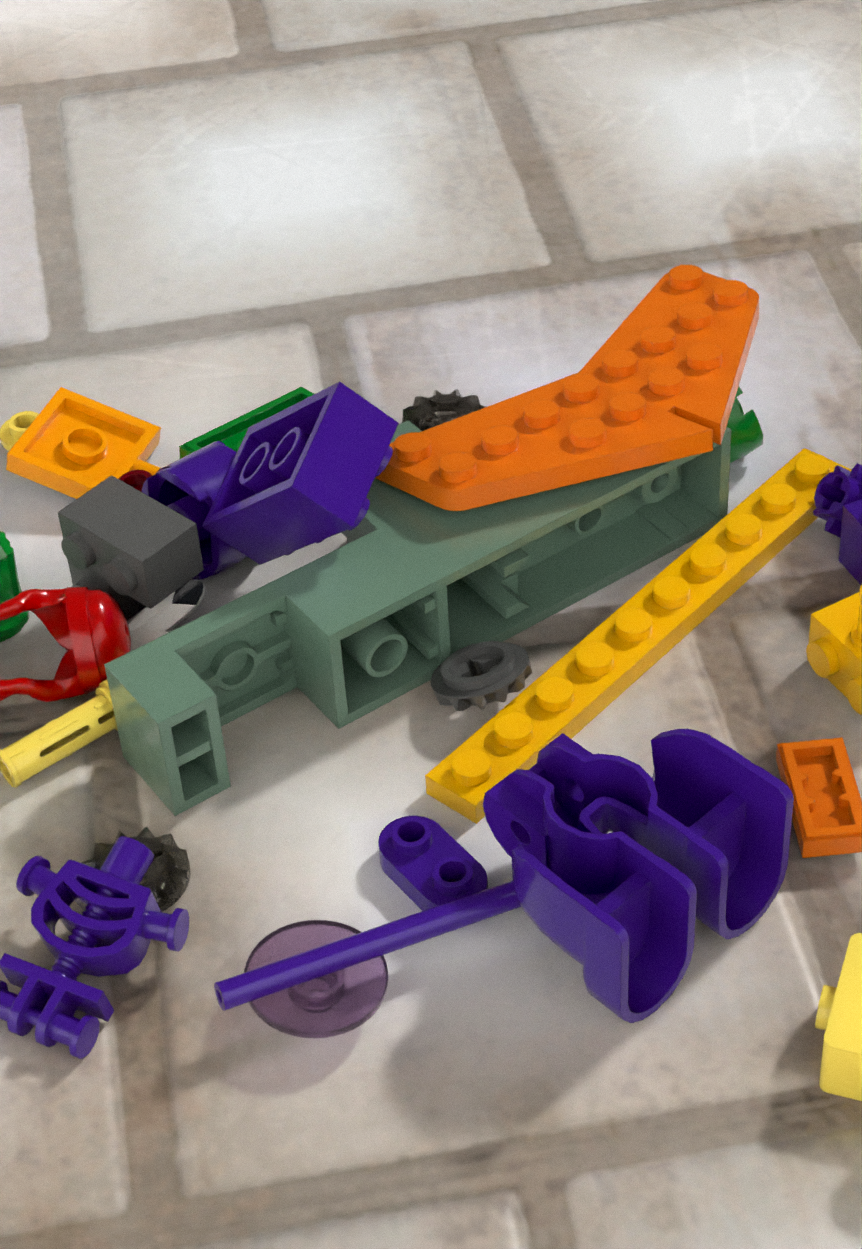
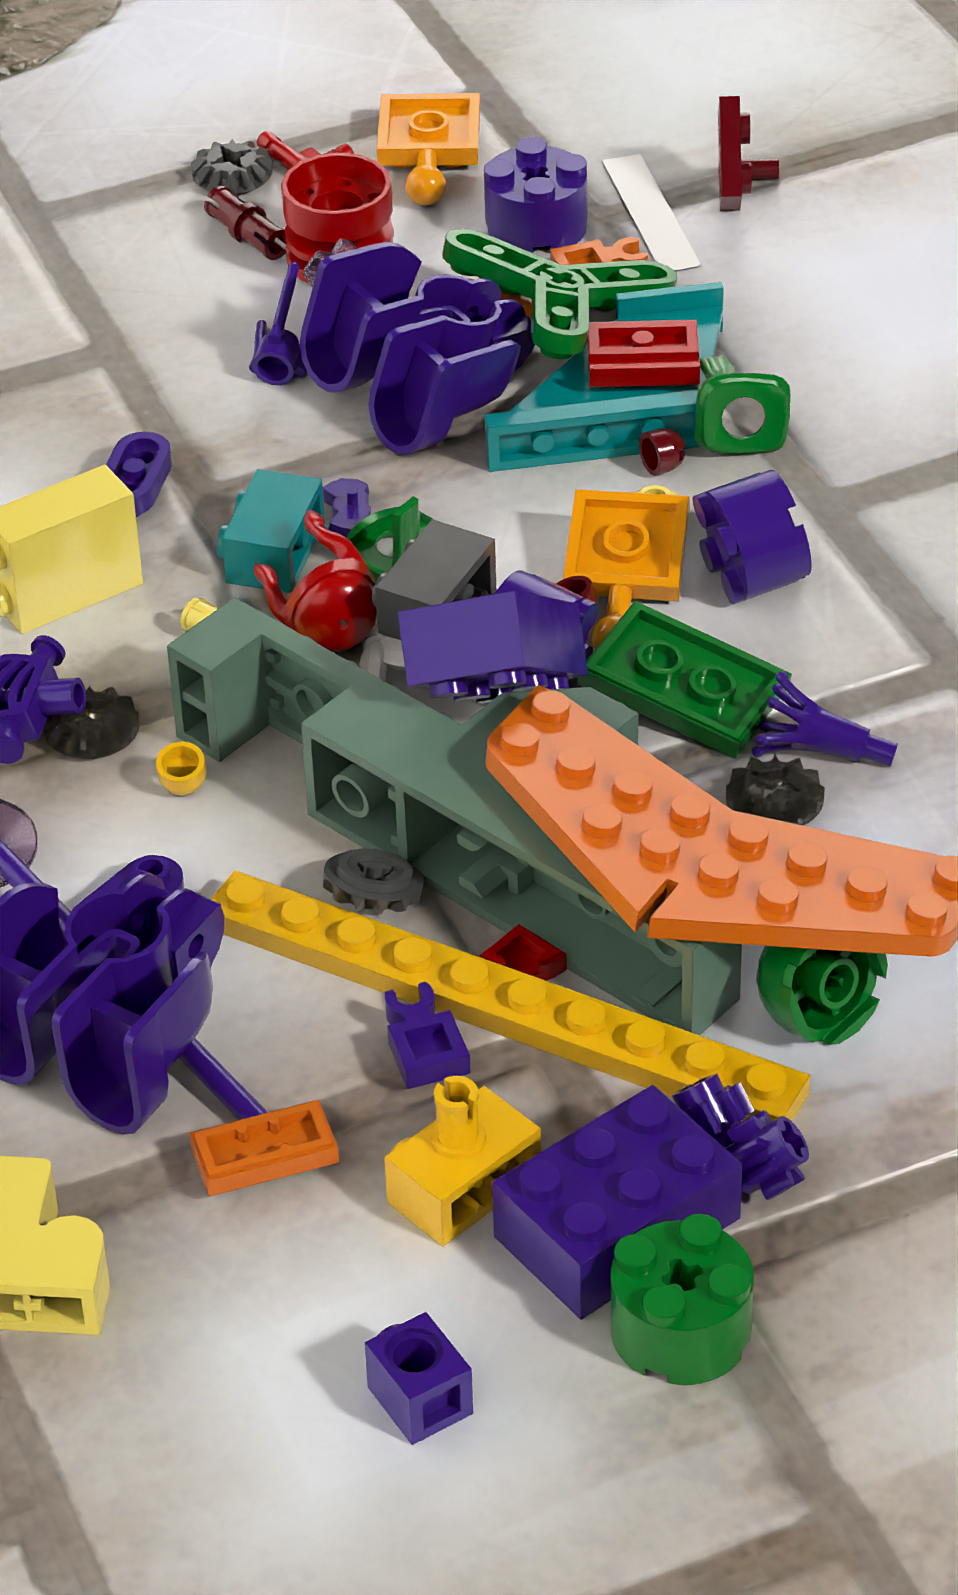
camera: 75 degrees right, 0 degrees up
(135, 358) = (752, 536): none -> dark purple brick
(241, 796) = (181, 768): none -> yellow hinge
(387, 379) = (817, 730): none -> dark purple piece
(597, 597) = (528, 954): none -> red tile
(706, 667) = (424, 1042): none -> dark purple plate

